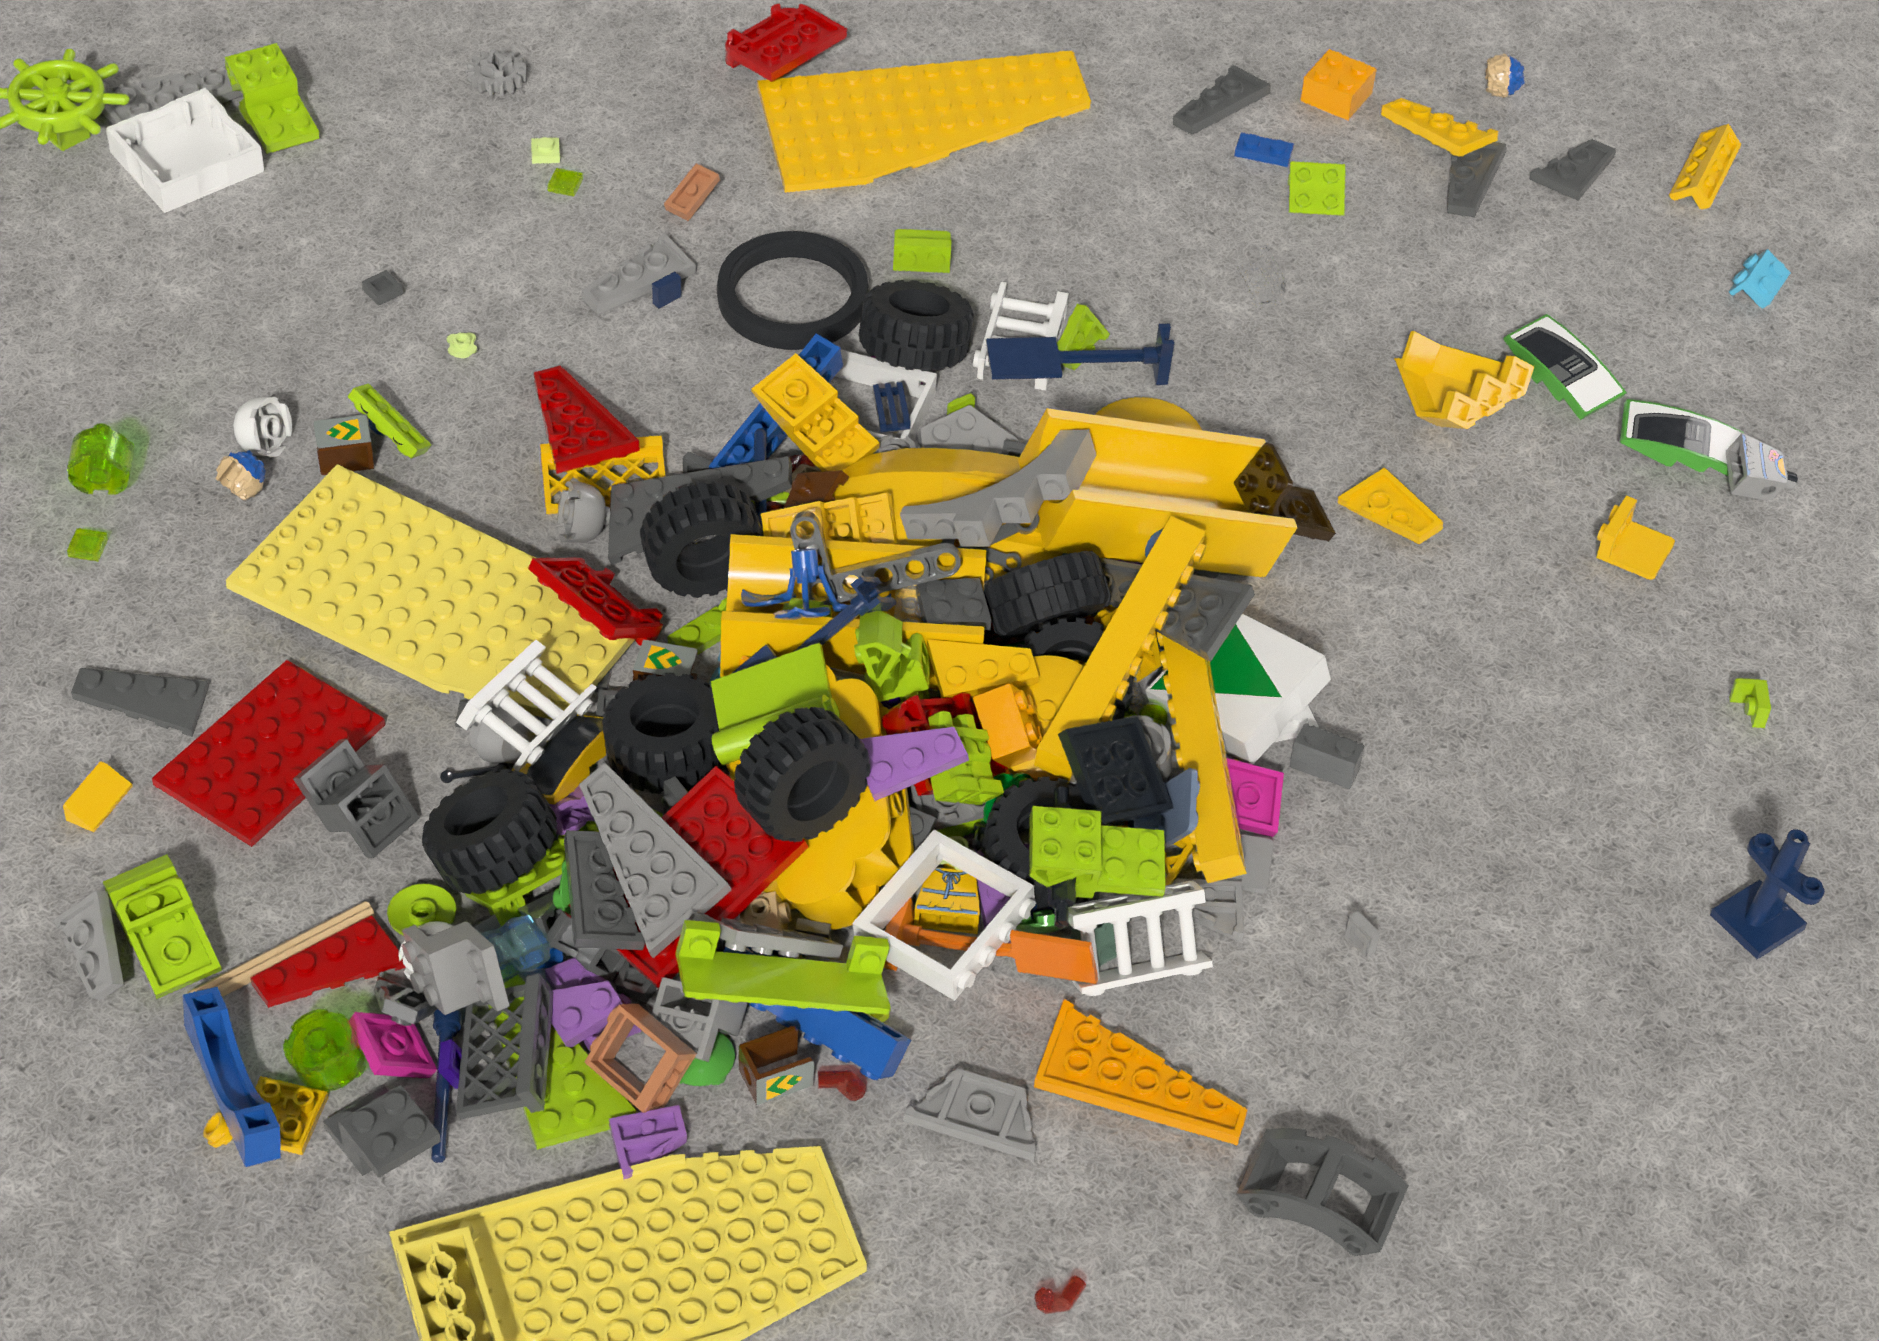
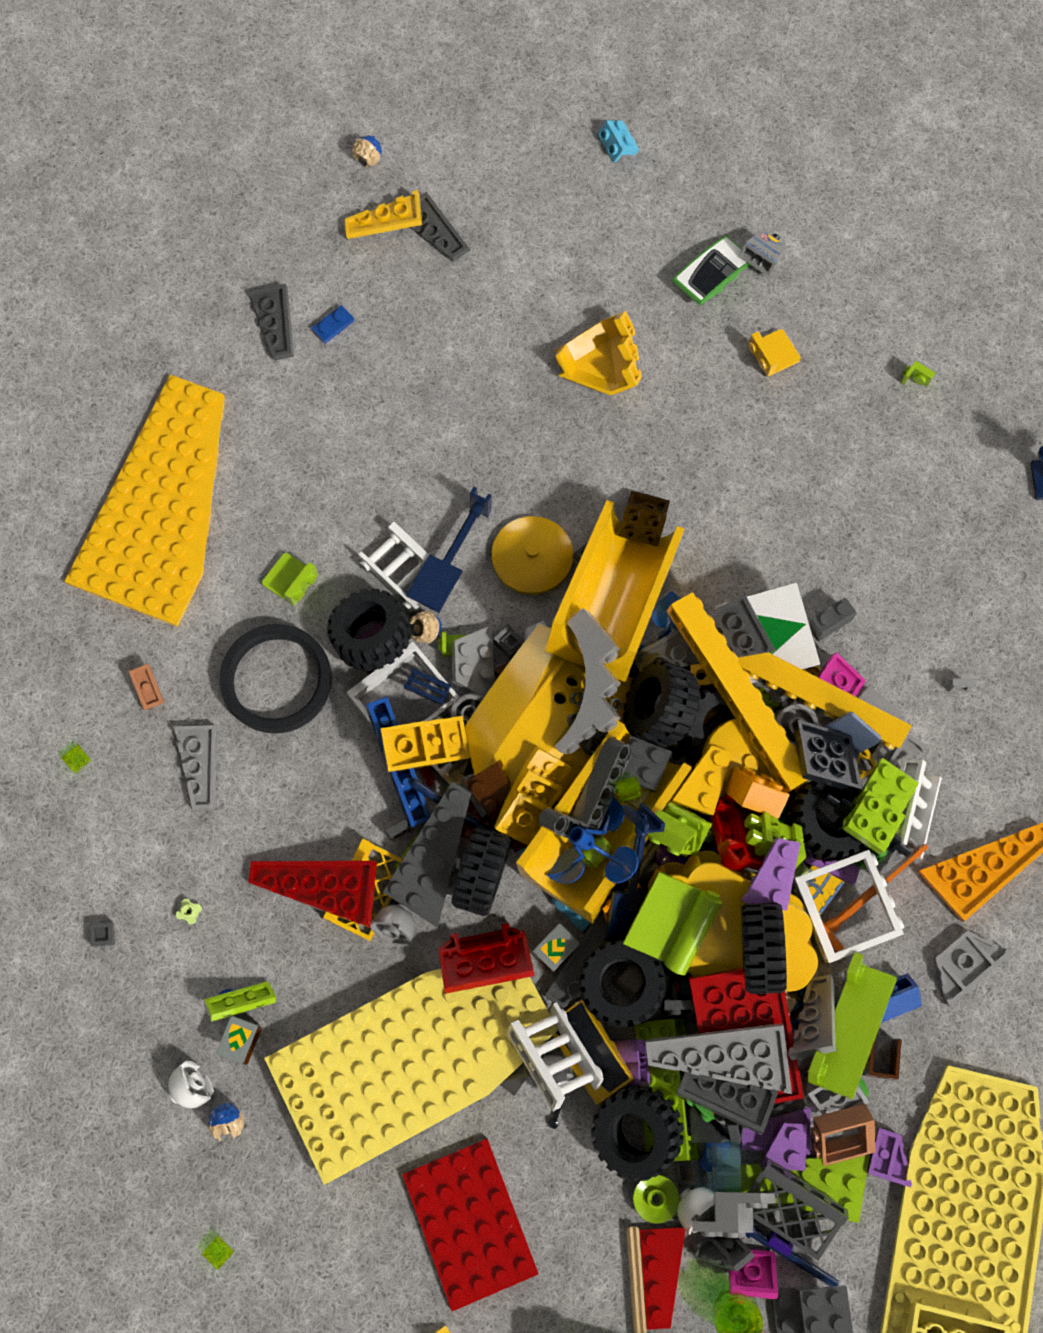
camera: 55 degrees left, 25 degrees up
(100, 460) = (157, 1211): clear neon green brick -> none
(154, 698) = (380, 1278): dark grey wing -> none
(356, 798) = (551, 1194): dark grey bracket -> none
(545, 150) = (37, 754): yellowish green plate -> none
(666, 290) = (225, 755): dark blue tile -> none
(700, 632) = (528, 903): lime hinge -> none
(782, 41) = (42, 545): red plate -> none
(844, 1081) = (906, 1022): clear red arm -> none
(909, 596) = (628, 789): none -> clear neon green tile
(966, 379) = (427, 626): none -> tan piece
(1081, 333) = (431, 538): lime wing -> none
(1316, 188) = (389, 319): lime hinge -> none
(1338, 84) = (311, 245): light orange brick -> none
(1392, 506) = (668, 456): yellow wing -> none
(1565, 366) = (621, 289): slope -> none
(1577, 170) = (468, 168): dark grey wing -> none
(1707, 166) = (517, 97): yellow fence -> none

